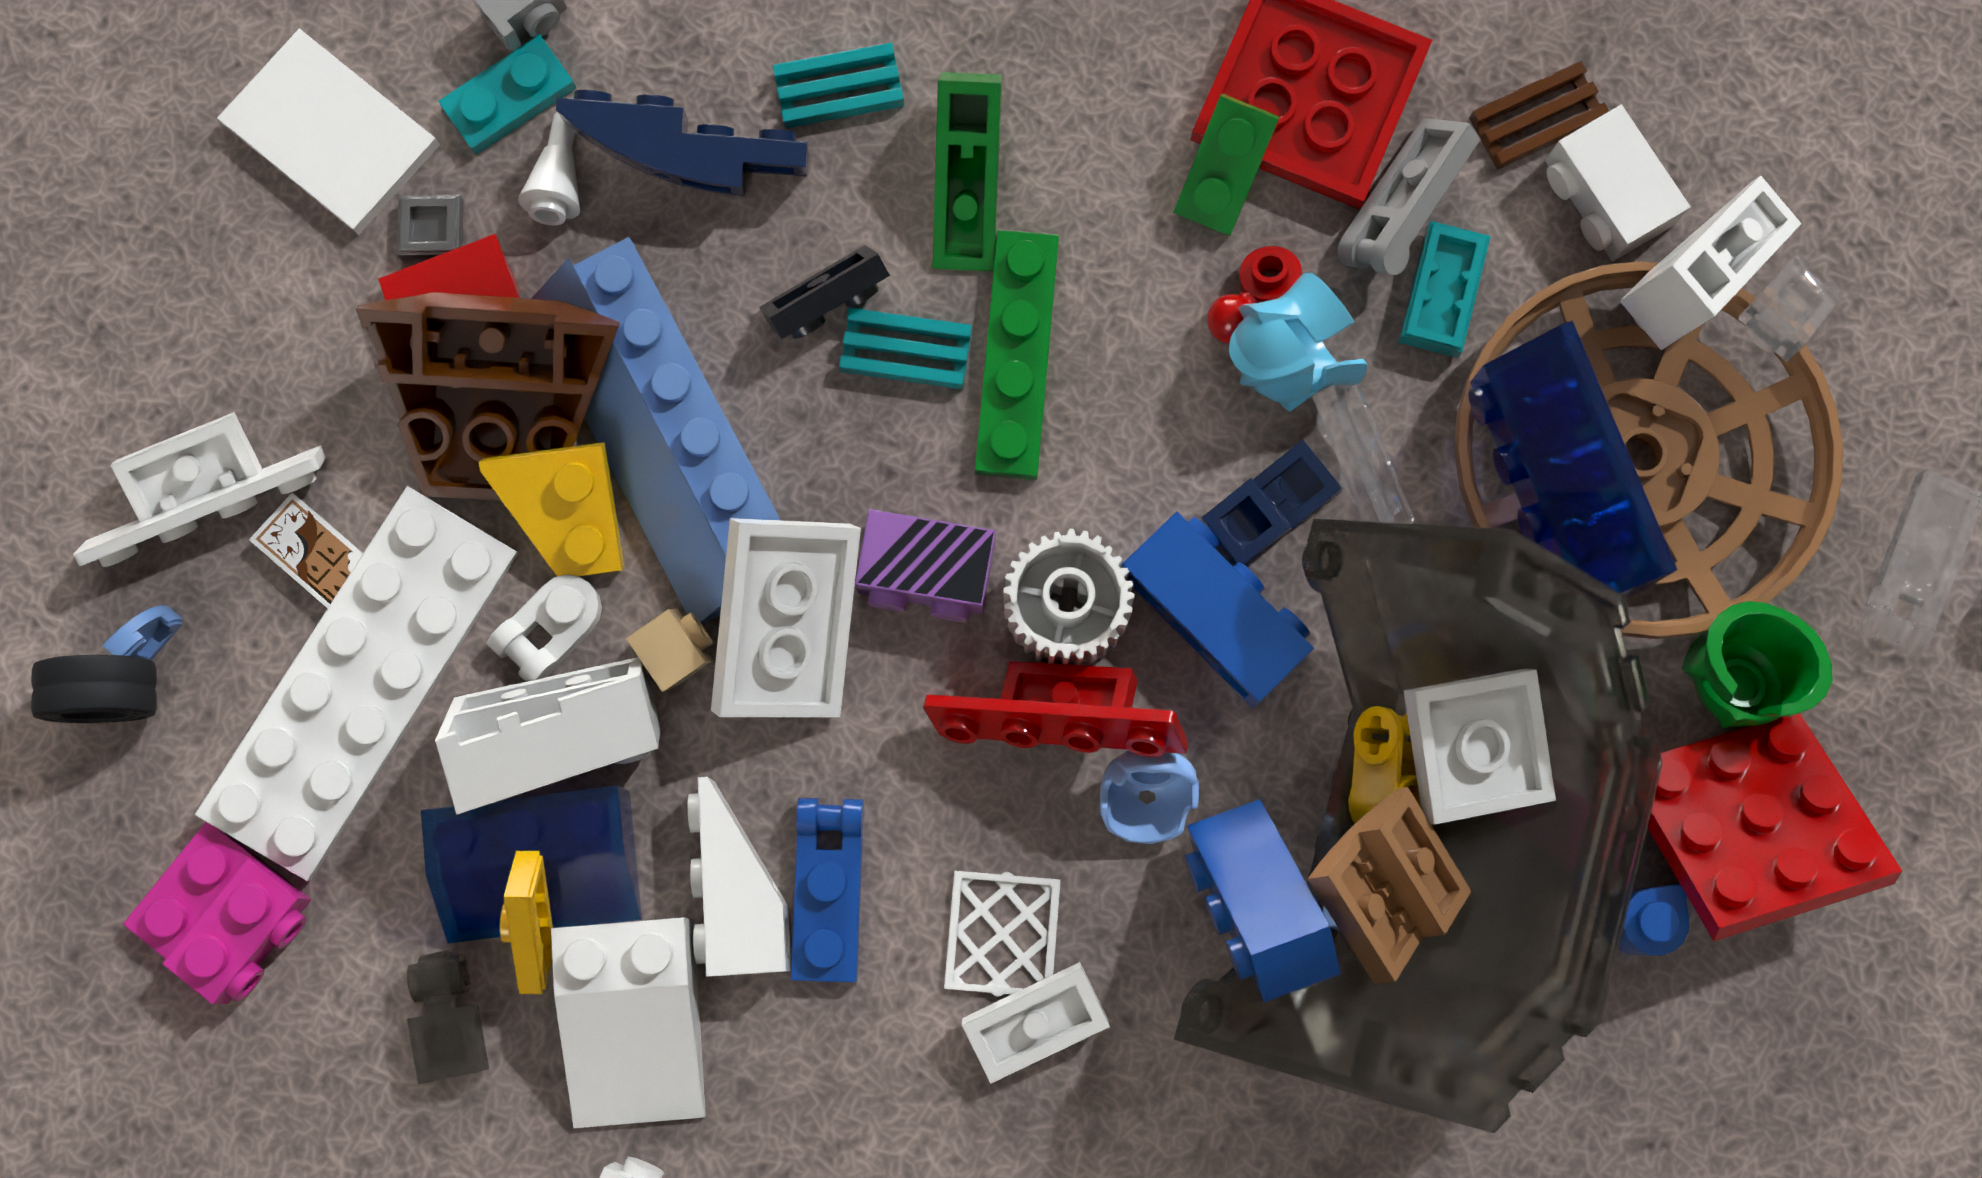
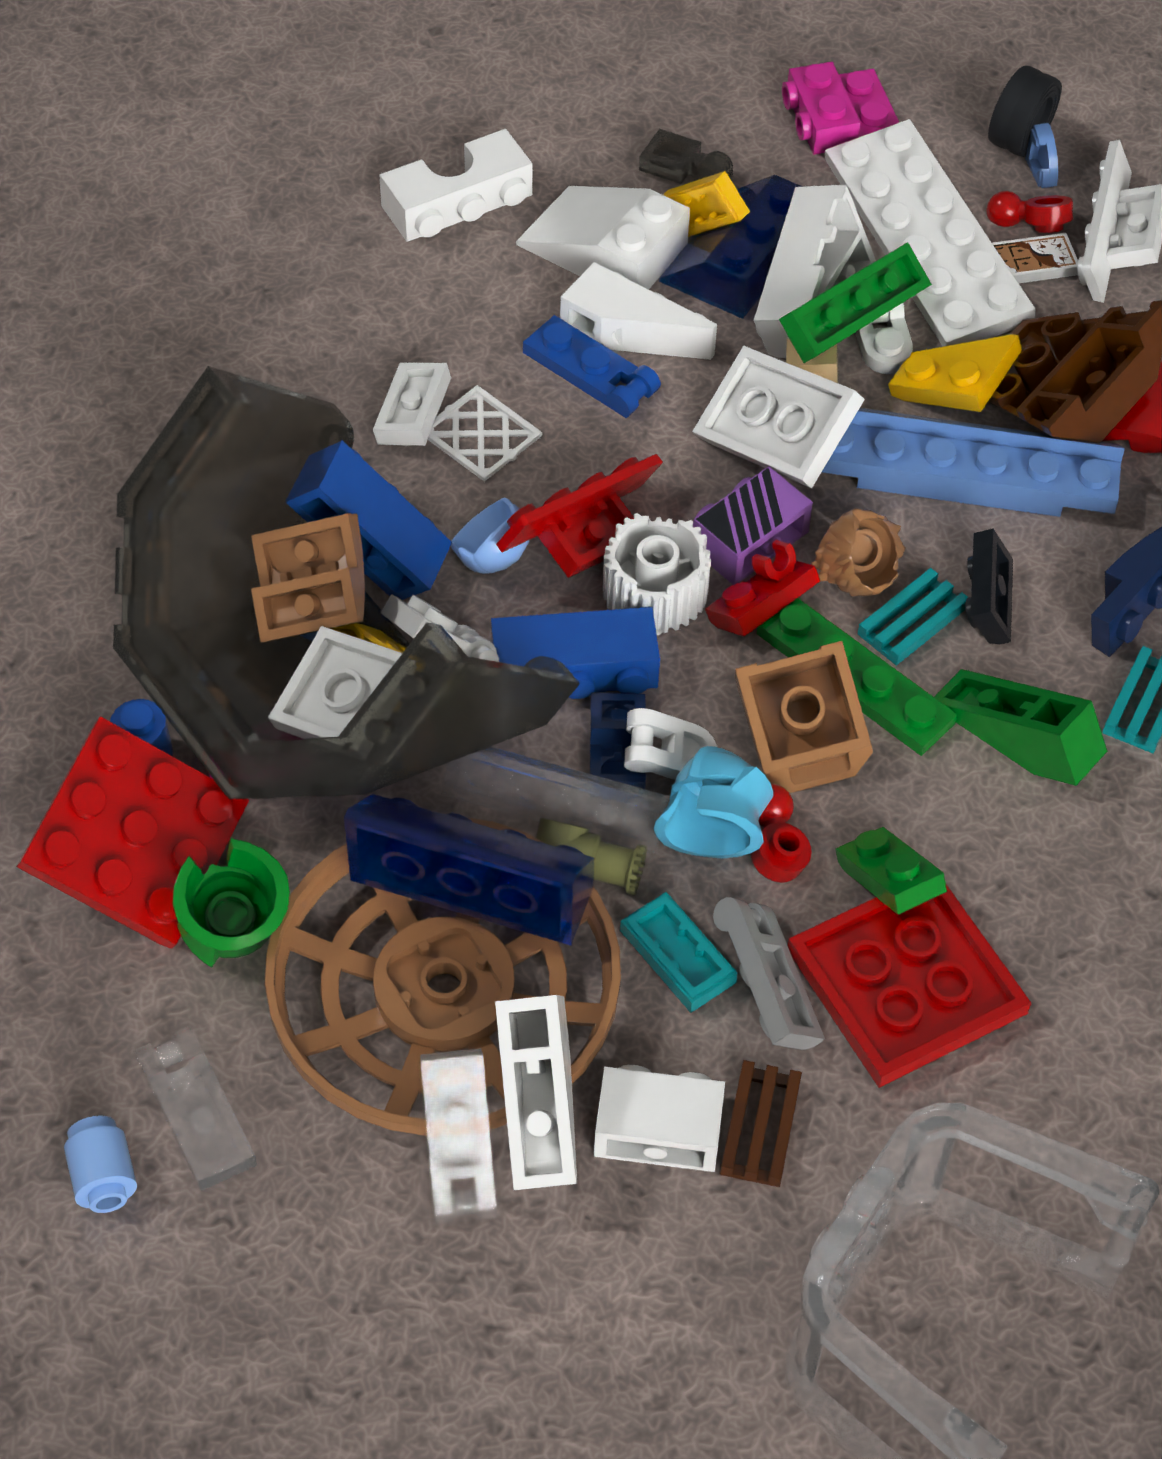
camera: 125 degrees right, 25 degrees down
(251, 627) = (1044, 212): none -> red plate
(569, 644) = (855, 302): none -> green plate
(888, 431) = (860, 553): none -> medium nougat hair
(999, 494) = (765, 594): none -> red plate
(1117, 356) = (805, 718): none -> medium nougat slope
(1244, 425) = (679, 742): none -> white plate
(1334, 741) = (415, 614): none -> white plate
(1415, 428) = (612, 862): none -> olive connector

